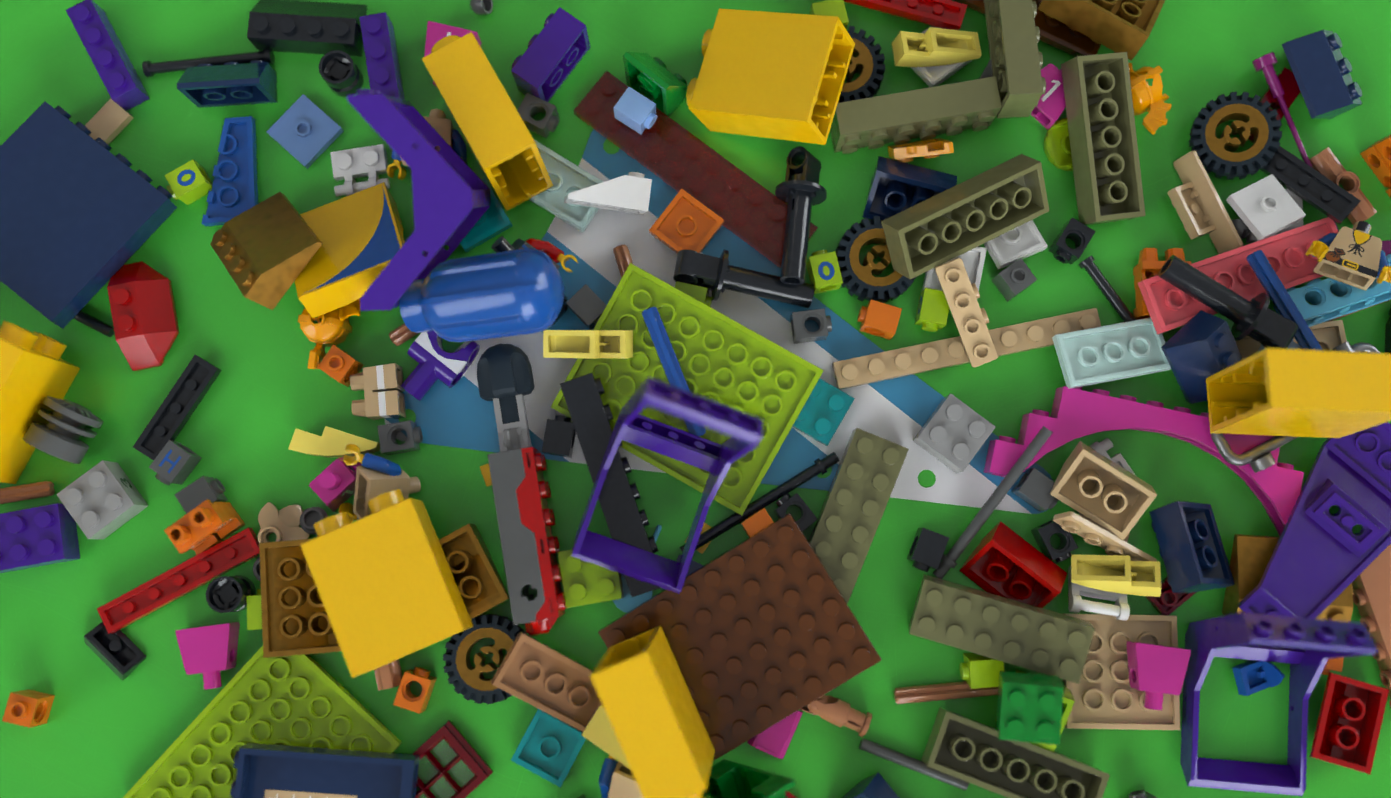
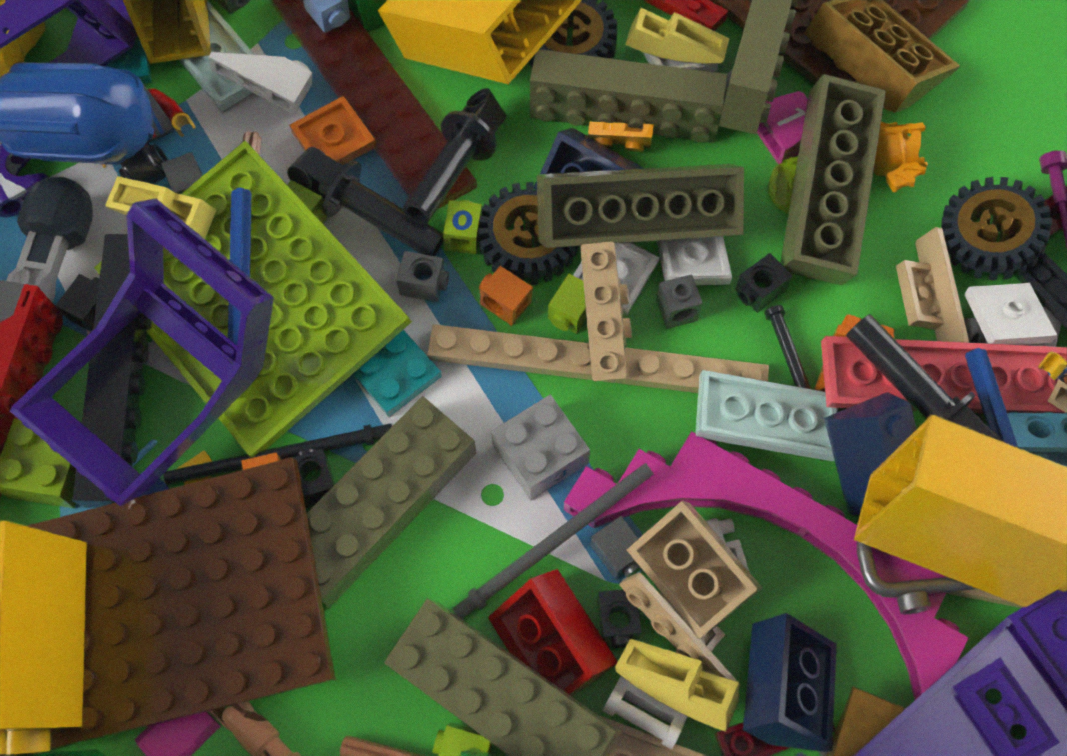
camera: 20 degrees right, 15 degrees down
(927, 549) = (455, 573): black brick -> none

